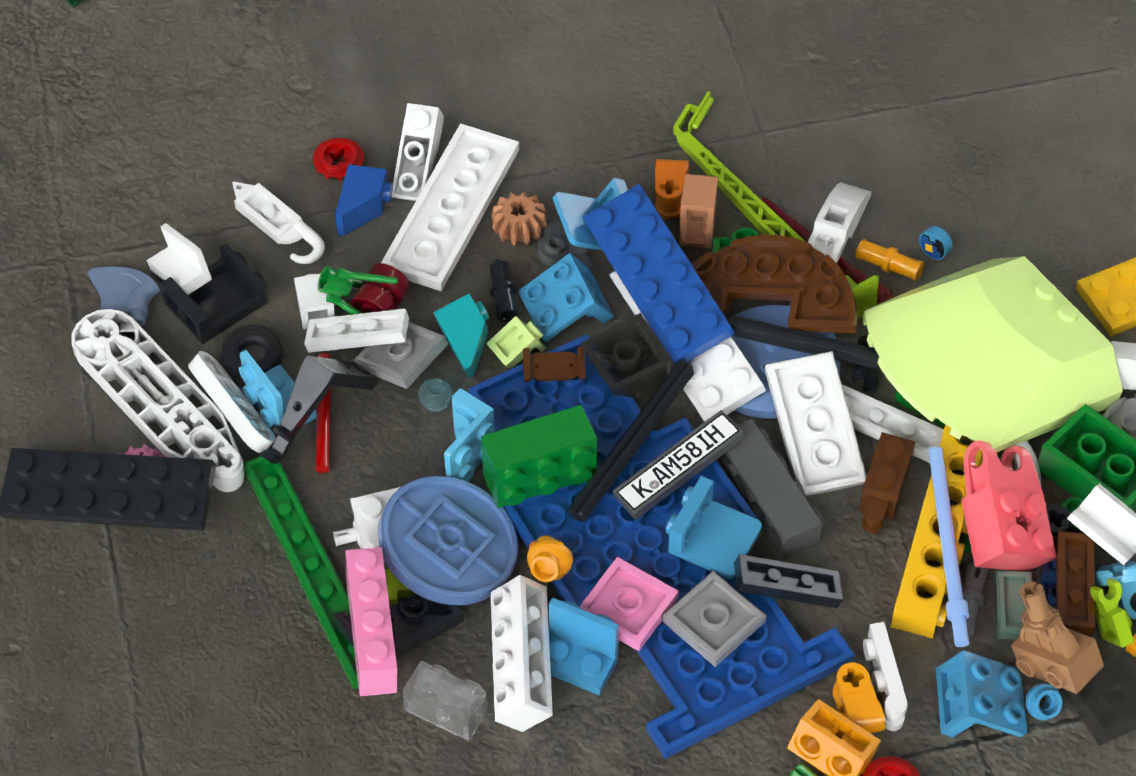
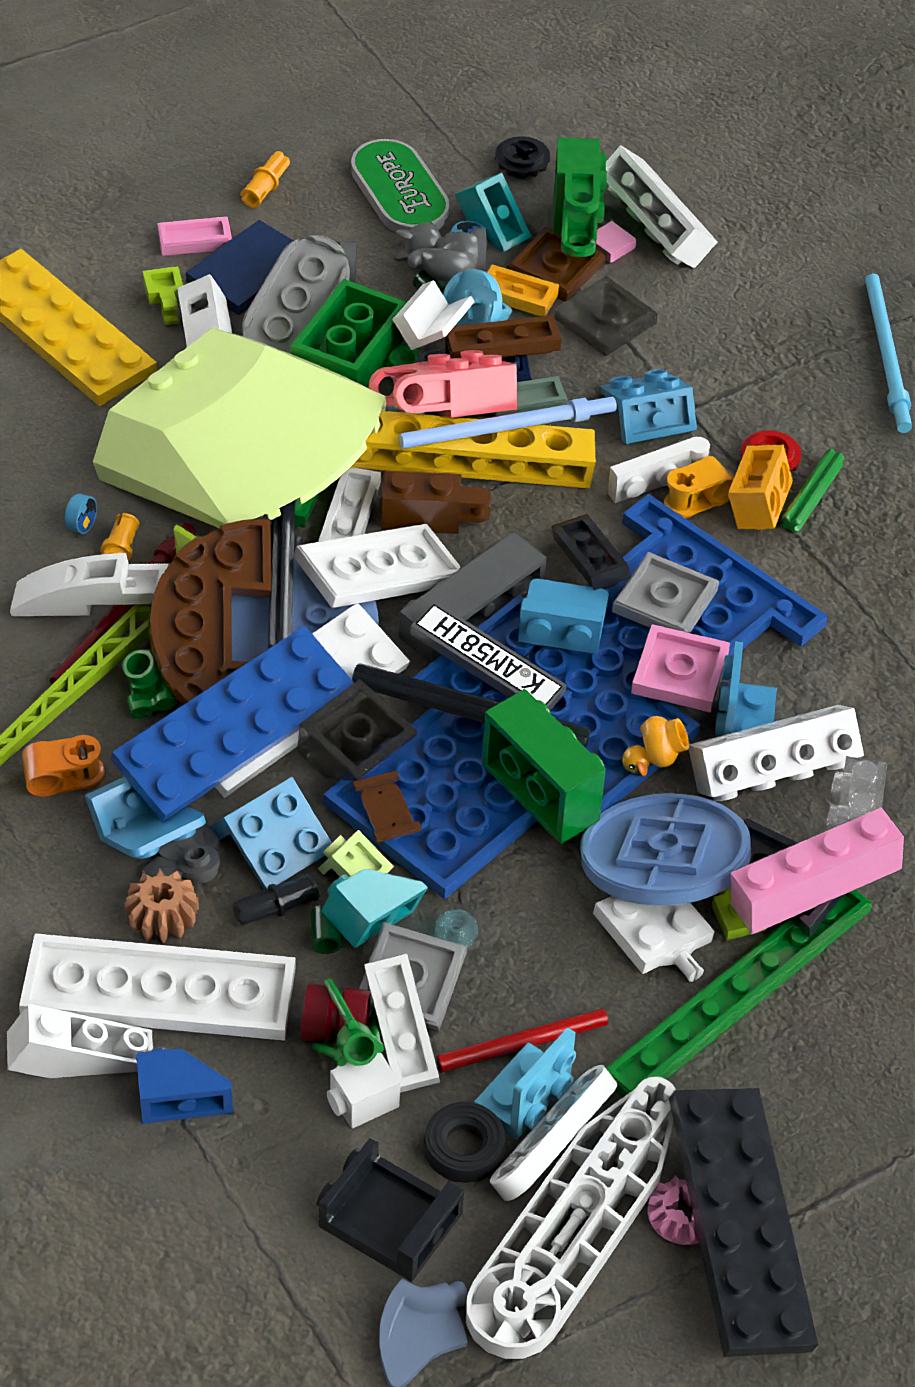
camera: 110 degrees left, 5 degrees down
(180, 261) = (360, 1260): white panel -> none
(276, 219) = (239, 1179): white plate -> none
(308, 391) = (530, 992): hinge -> none
(333, 150) = (97, 1128): red gear -> none
(471, 421) = (533, 851): medium azure bracket -> none
(698, 211) = (111, 709): nougat brick -> none
(1049, 648) = (589, 342): medium nougat brick -> none
(1052, 703) = (632, 358): dark azure plate -> none
(1112, 620) = (528, 307): lime plate -> none

